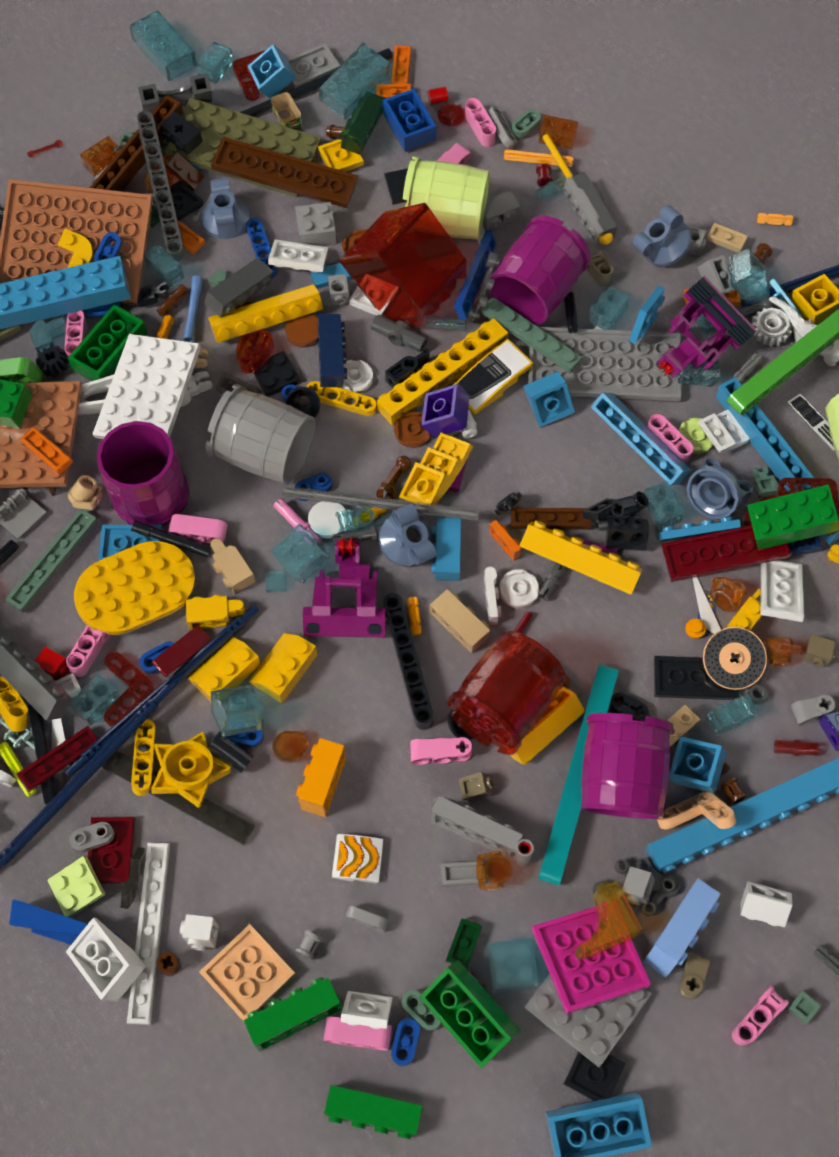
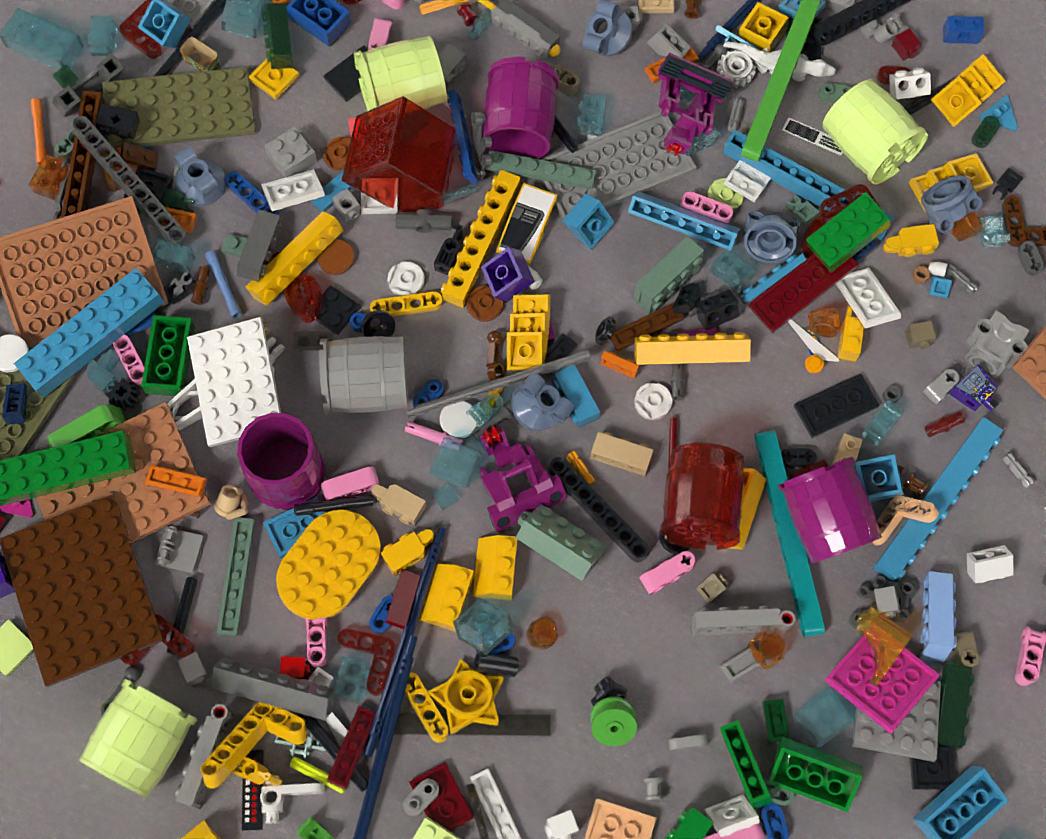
camera: 30 degrees left, 5 degrees up
(79, 246) = (88, 275): yellow plate -> none
(105, 248) = (118, 266): blue plate -> none
(123, 105) = (37, 113): none -> orange piece
(164, 82) = (65, 77): none -> clear green plate
(165, 327) = (209, 315): light orange axle -> none
(194, 221) = (175, 200): none -> clear green plate
(284, 172) = (234, 116): reddish brown plate -> none
(305, 859) = (613, 721): none -> bright green wheel
(318, 832) = (608, 688): none -> black piece
(321, 777) = (586, 645): light orange brick -> none
(331, 350) = (374, 265): dark blue brick -> none
(334, 131) = (257, 54): reddish brown pin -> none
(353, 670) = (559, 541): none -> sand green piece
(357, 858) = (651, 697): slope -> none
(407, 968) = (746, 765): none -> green brick
(460, 499) = (560, 349): none -> black plate
(492, 594) = (635, 418): white hinge -> none
(597, 479) = (668, 275): none -> sand green piece
(629, 505) = (707, 283): black piece -> none
(647, 315) = (633, 107): dark azure plate -> none
(649, 1024) = (953, 705): none -> clear green brick
(748, 277) = (696, 33): clear light blue brick -> none
(751, 660) = (874, 369): flat silver piece -> none
(781, 650) = (892, 349): clear orange piece -> none

